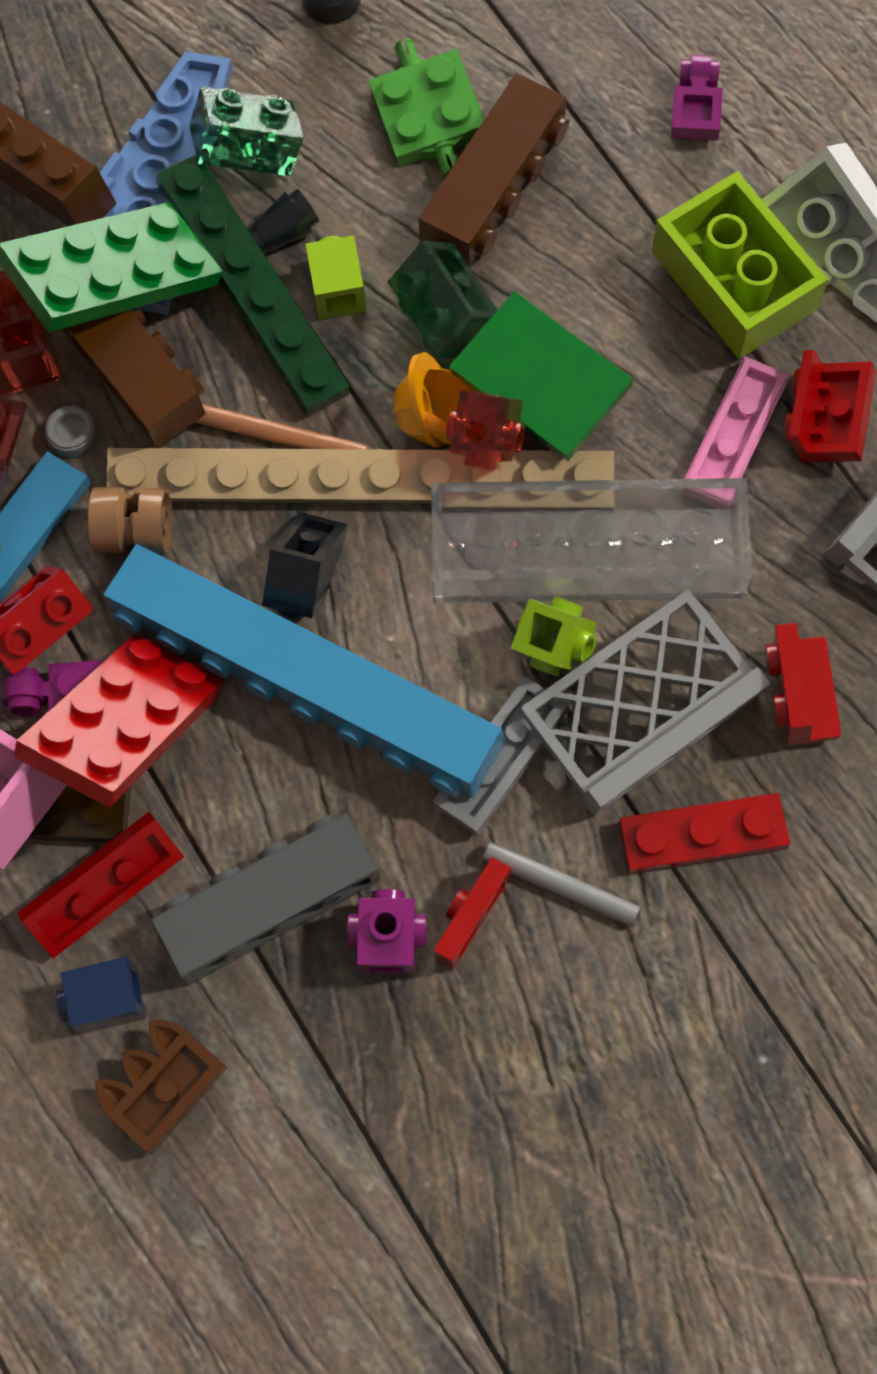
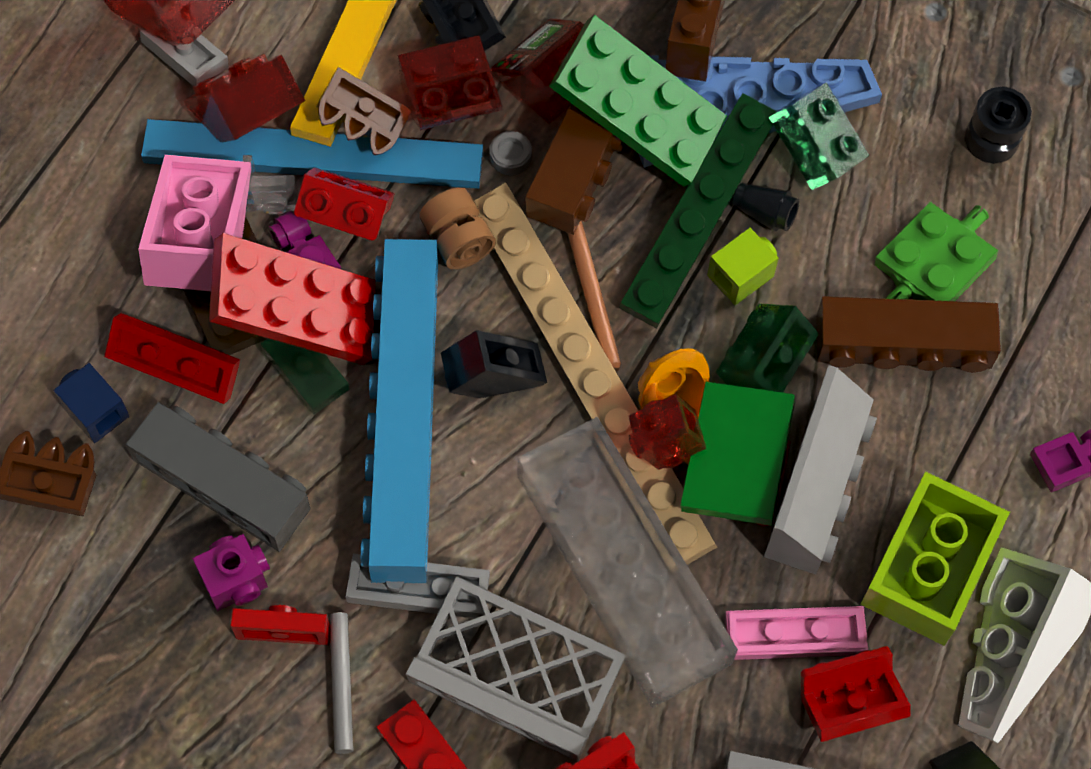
camera: 55 degrees right, 5 degrees down
(202, 752) = (308, 373): none -> clear green plate
(555, 635) = (531, 573): lime brick -> none
(590, 307) = (821, 474): none -> light grey slope

